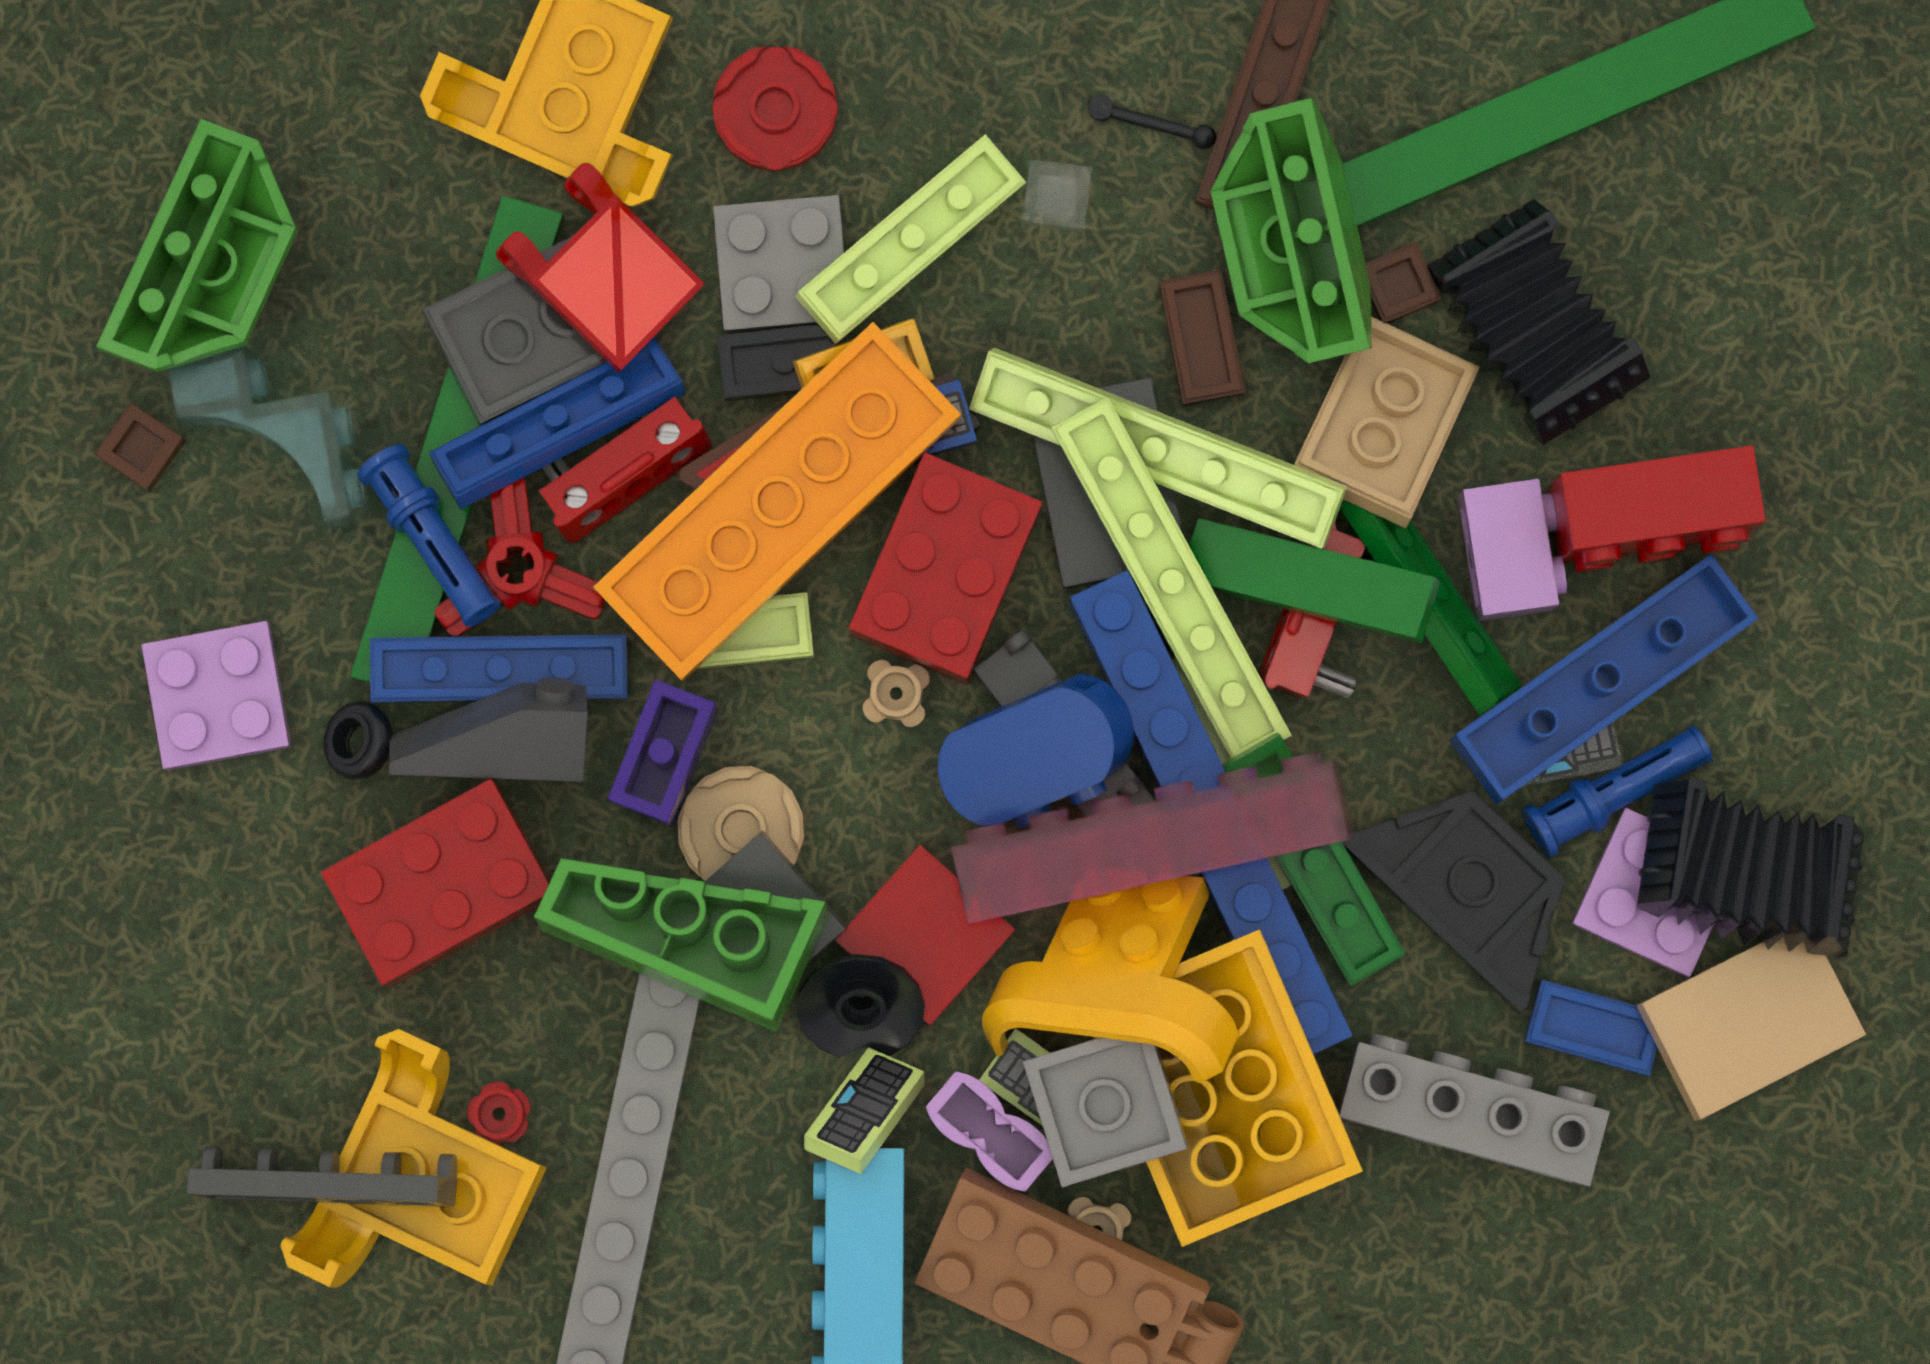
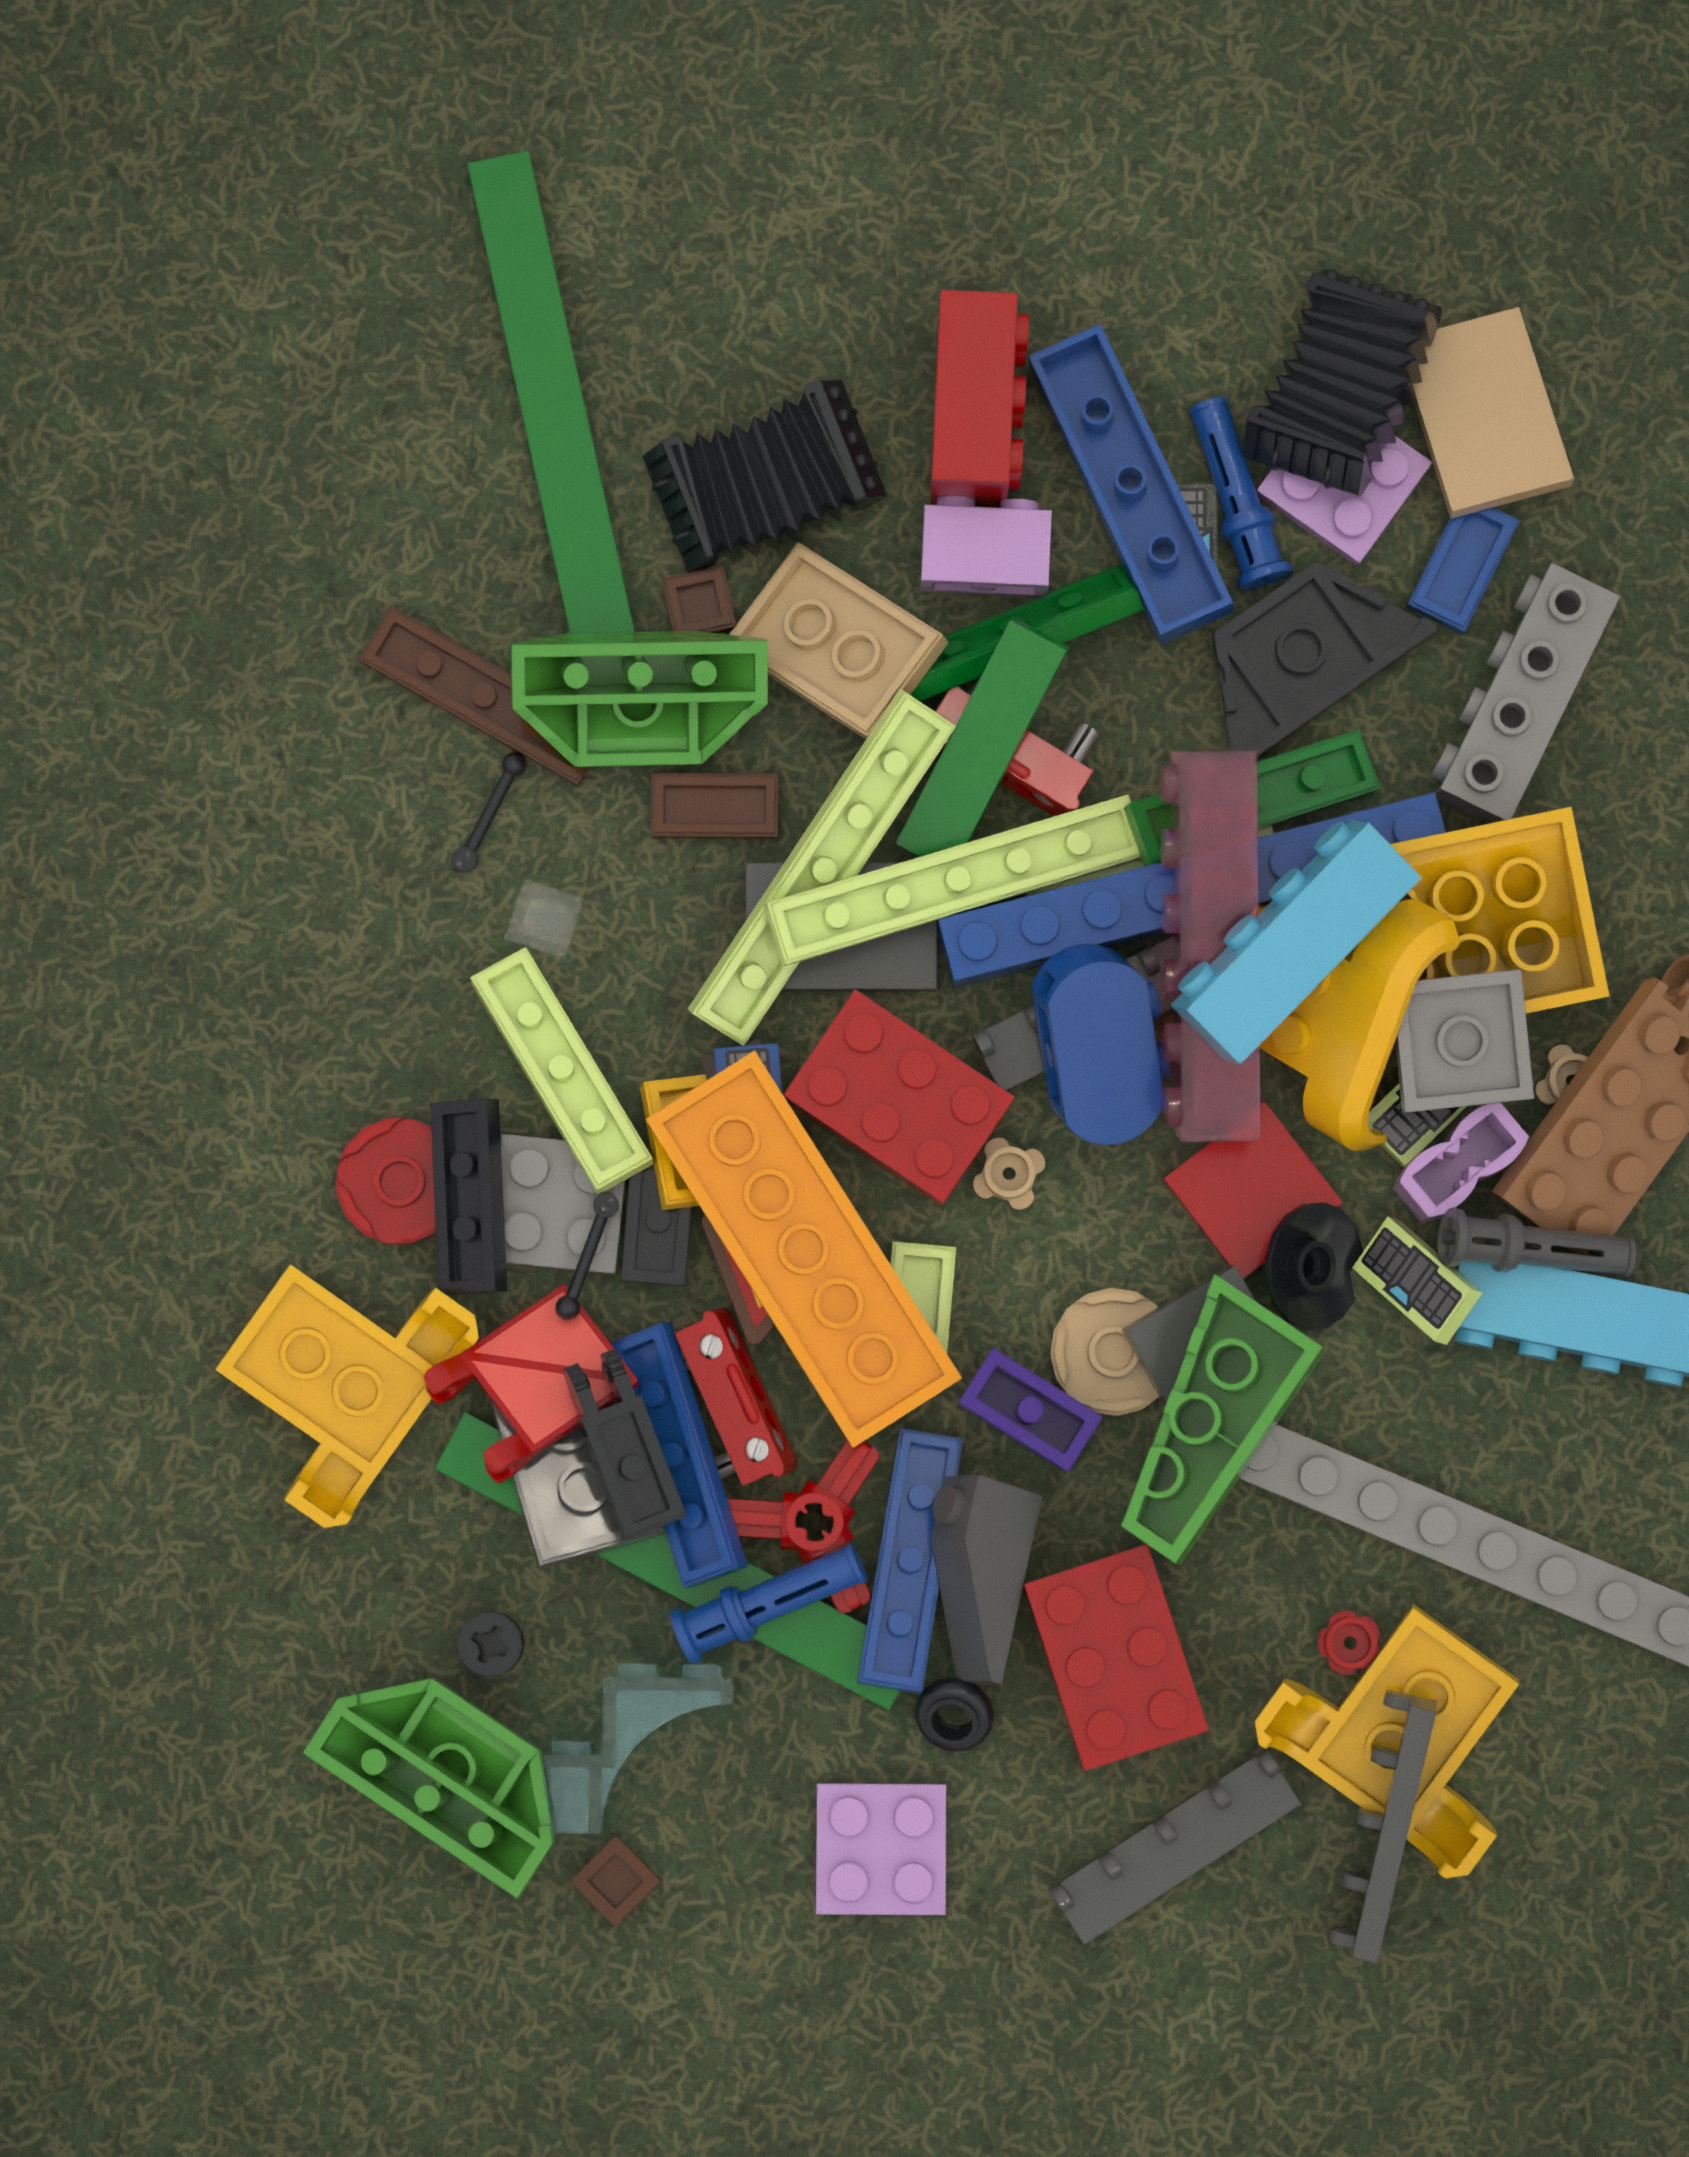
camera: 80 degrees left, 0 degrees up
(269, 979) = (1174, 1846): none -> dark grey hinge
(354, 288) = (499, 1647): none -> black wheel
(545, 368) = (625, 1451): none -> black hinge
(768, 172) = (468, 1197): none -> black plate
(785, 305) = (606, 1207): none -> black hinge
(921, 1187) = (1506, 1242): none -> dark grey pin
(1167, 914) = (1294, 940): none -> medium azure brick

